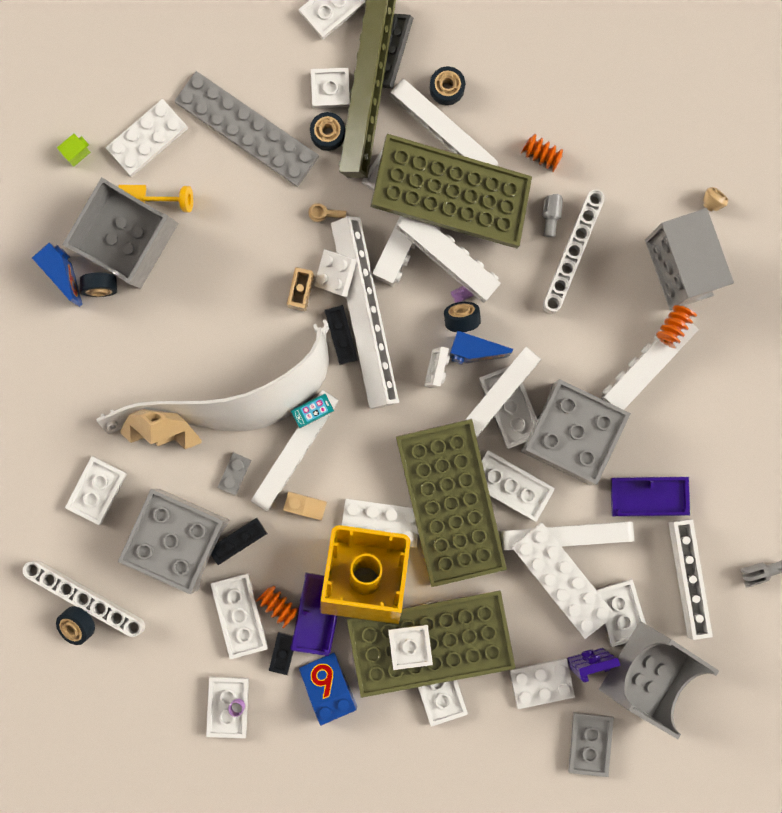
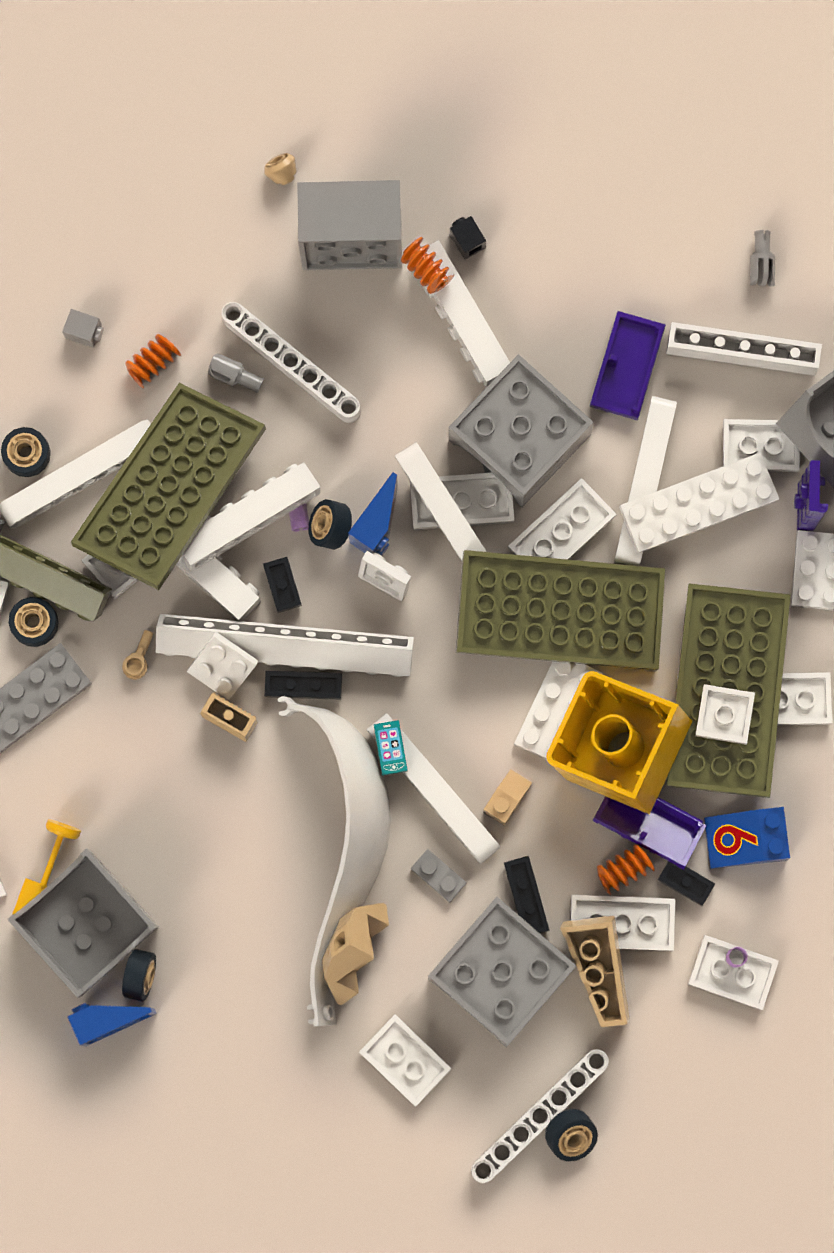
camera: 70 degrees left, 5 degrees down
(204, 607) = (598, 959): none -> tan wedge
(409, 297) = (282, 584): none -> black plate
(550, 96) = (83, 328): none -> light grey brick
(708, 350) = (467, 237): none -> black brick

